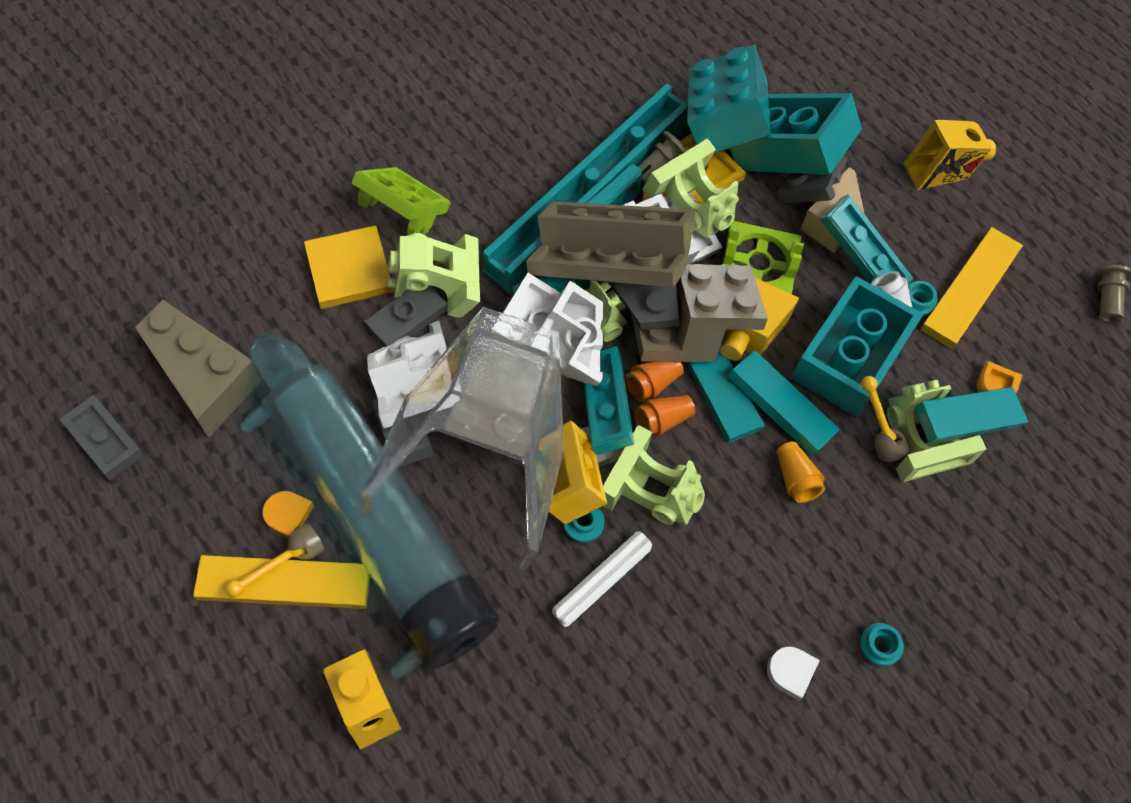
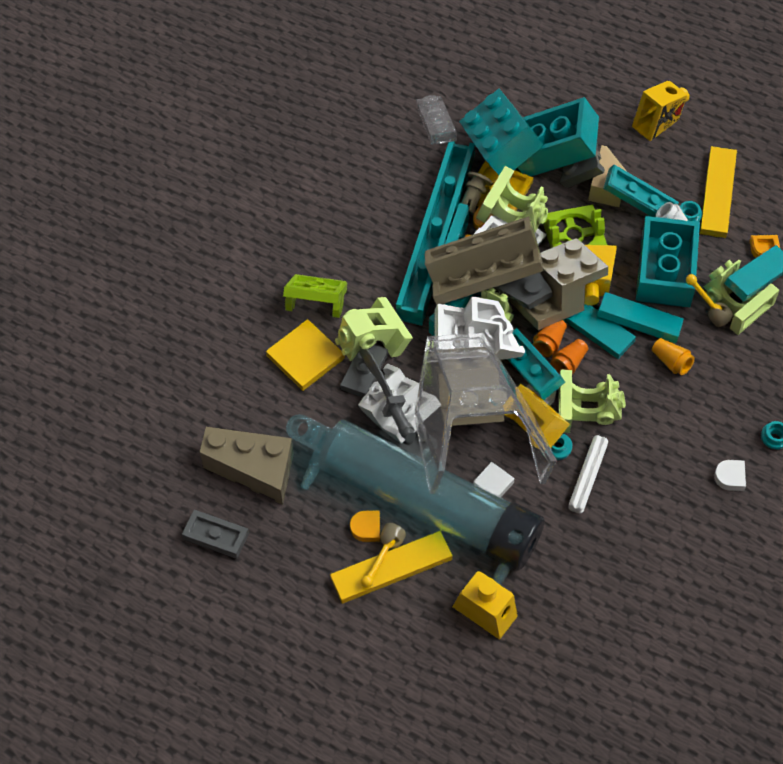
camera: 20 degrees left, 5 degrees down
(394, 373) = (393, 403): none -> dark grey sword
(476, 531) = (494, 480): none -> white tile
(664, 57) = (436, 120): none -> clear plate

